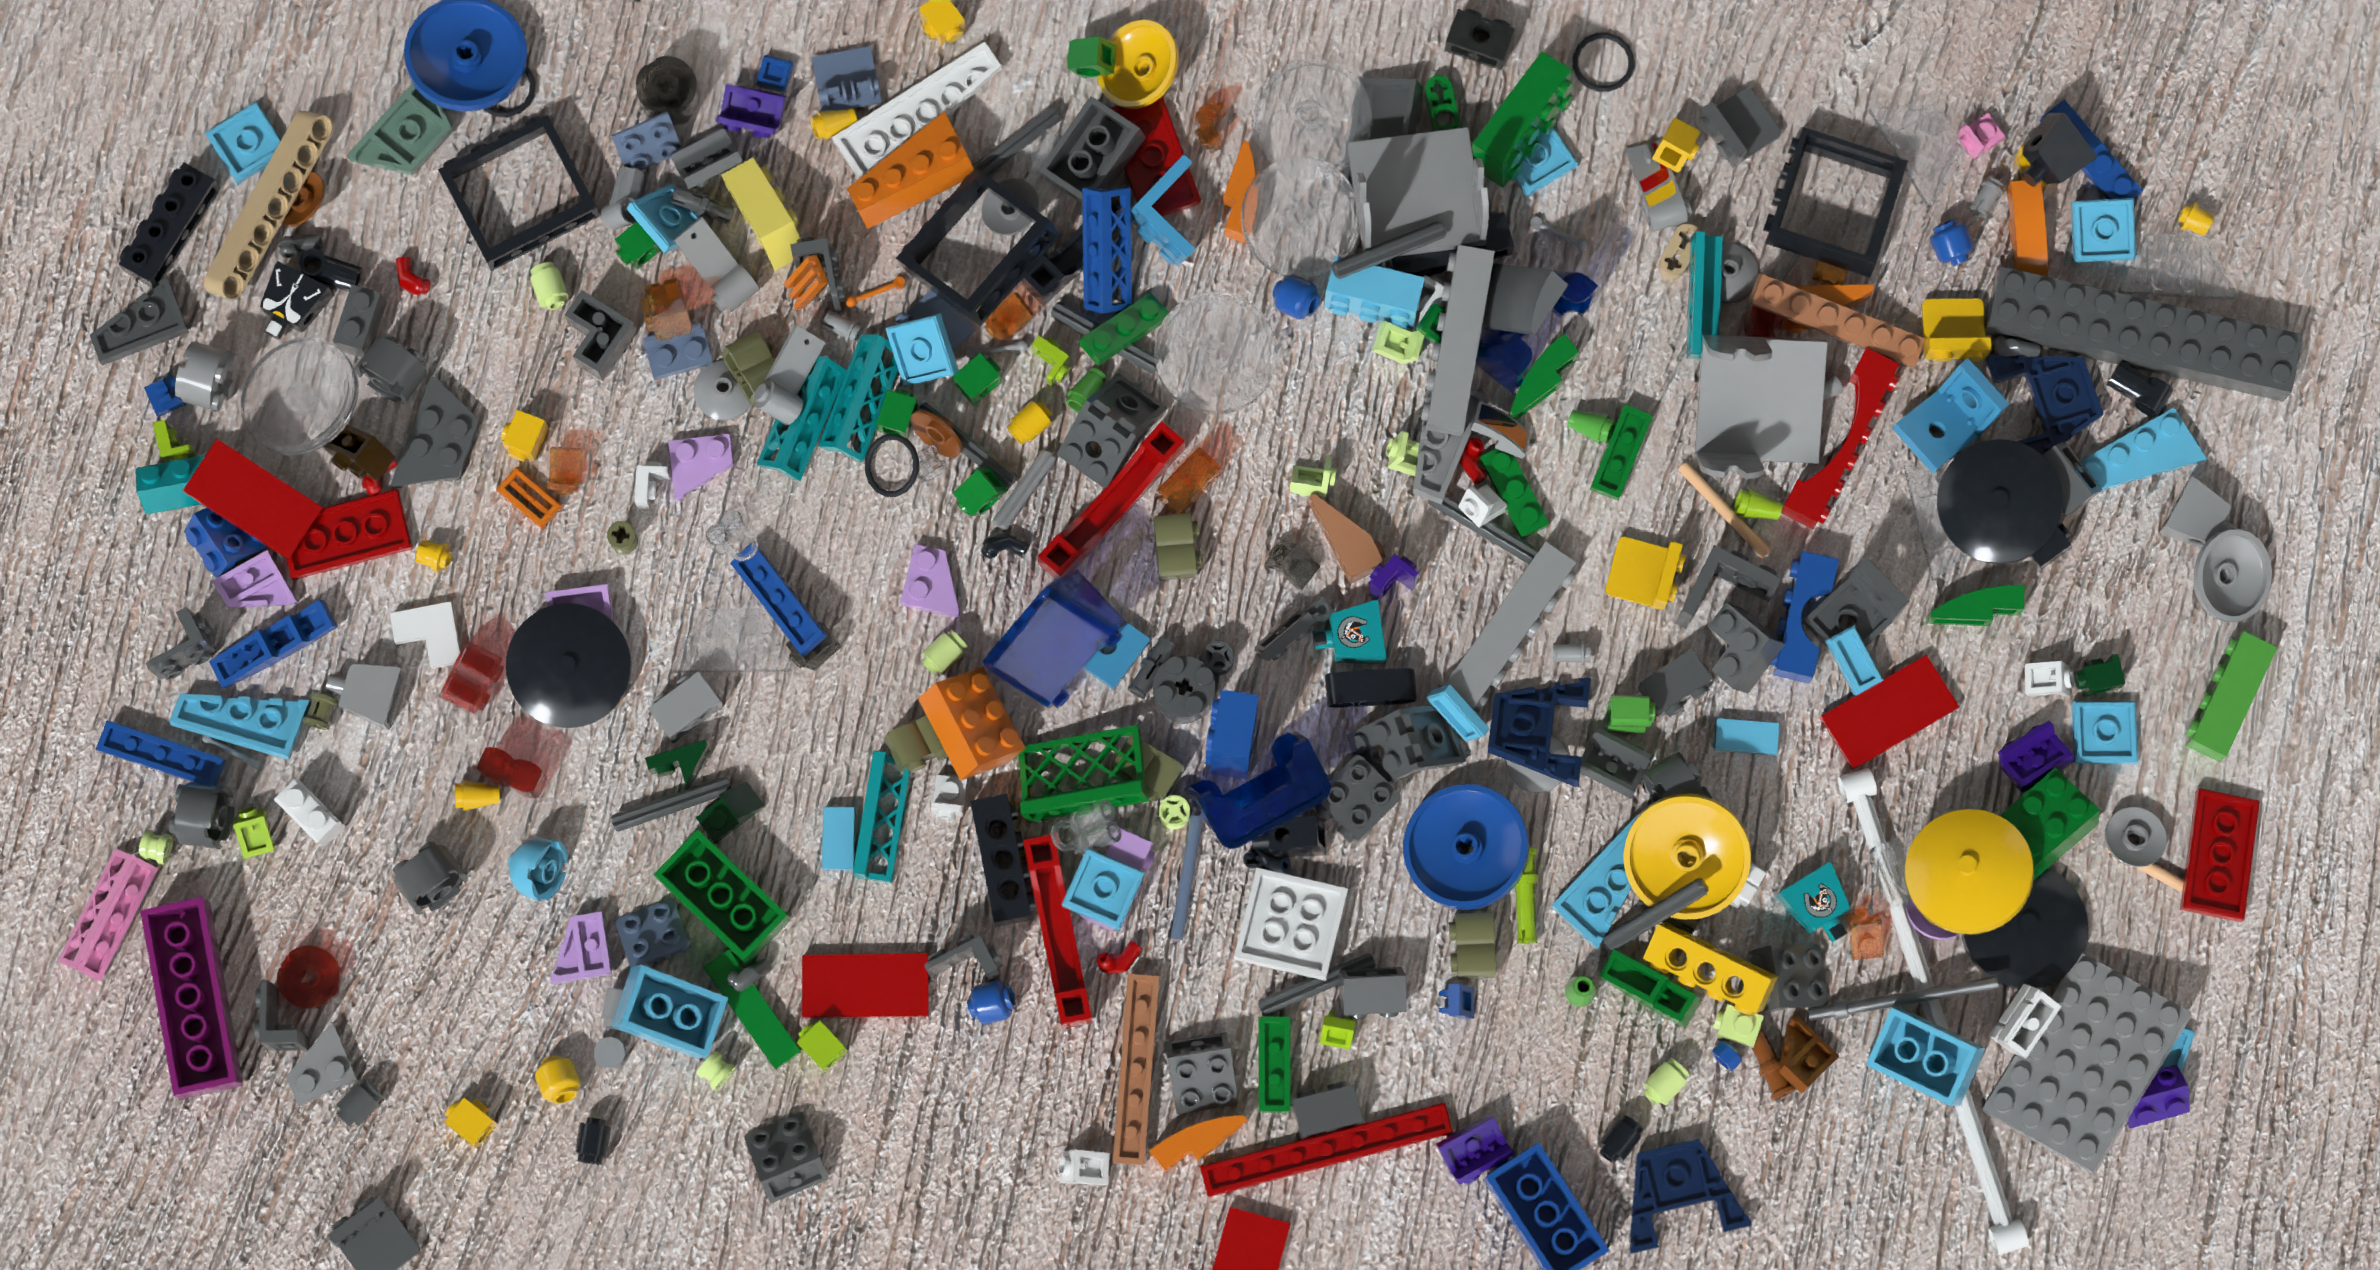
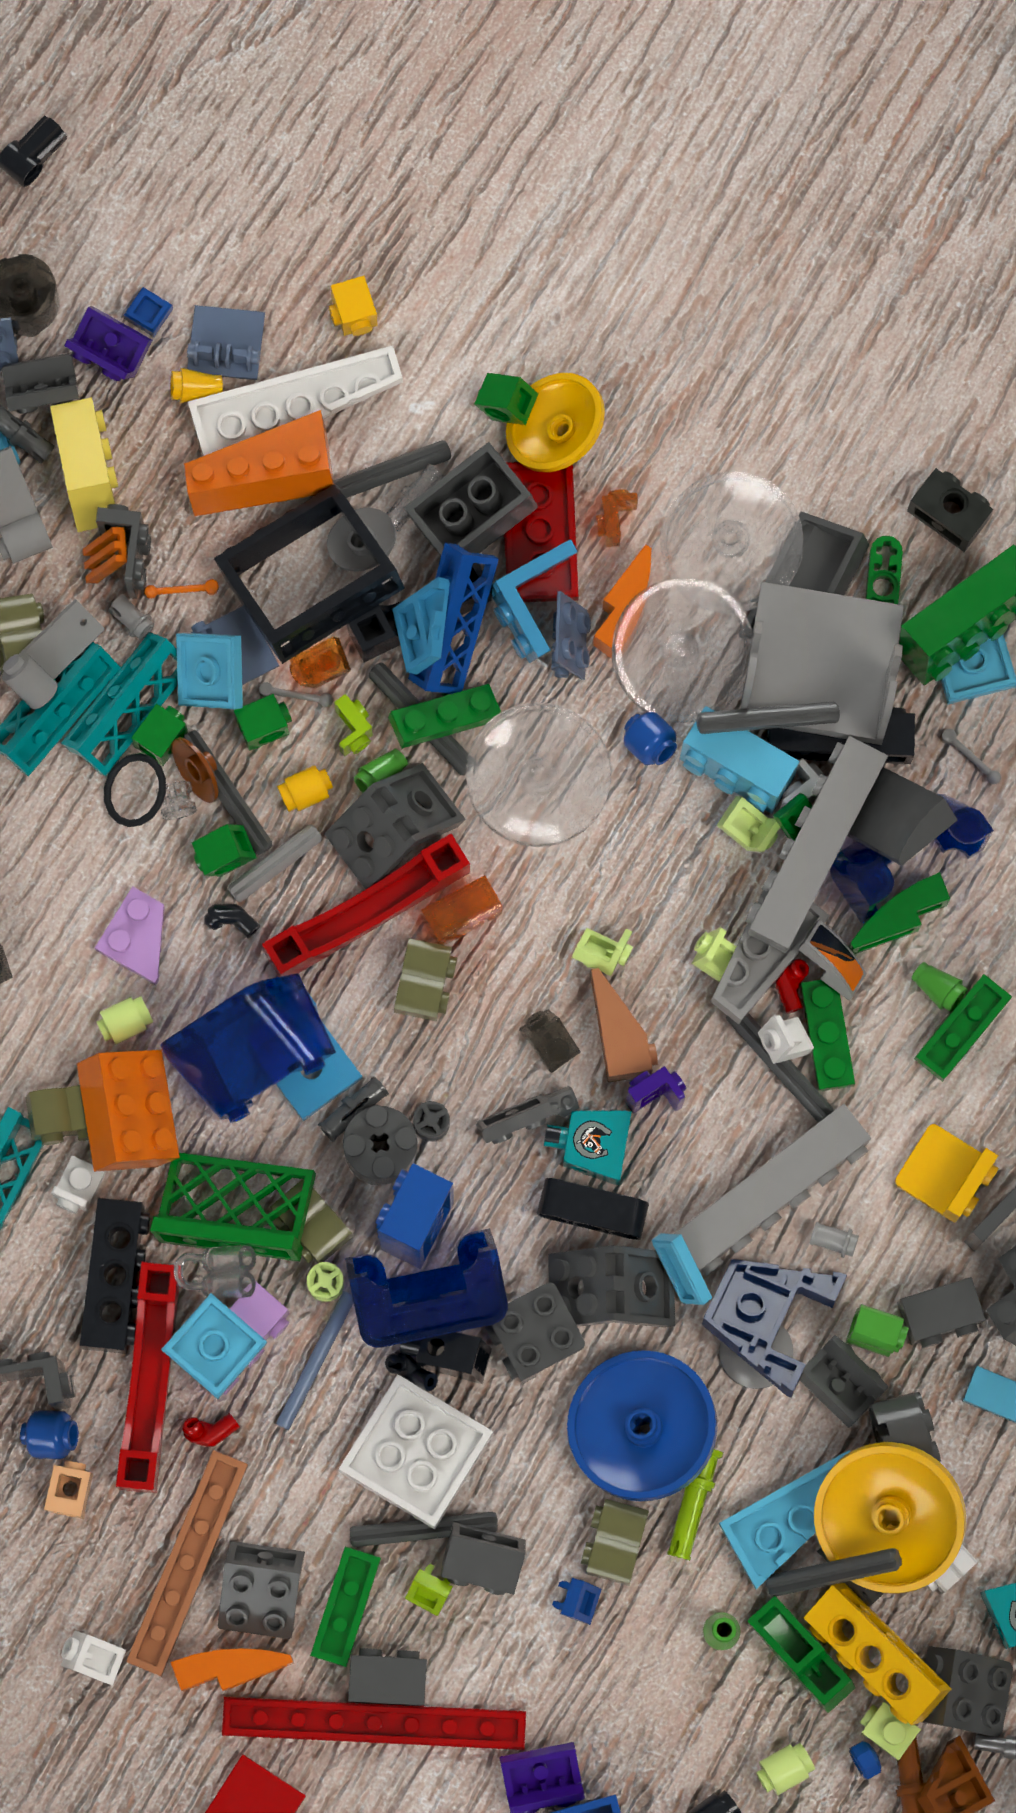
camera: 15 degrees right, 0 degrees up
(1022, 1027) = (58, 1501): none -> light nougat brick
(1084, 260) = (422, 625): none -> dark azure wing
(1202, 227) = (571, 627): none -> sand blue hinge

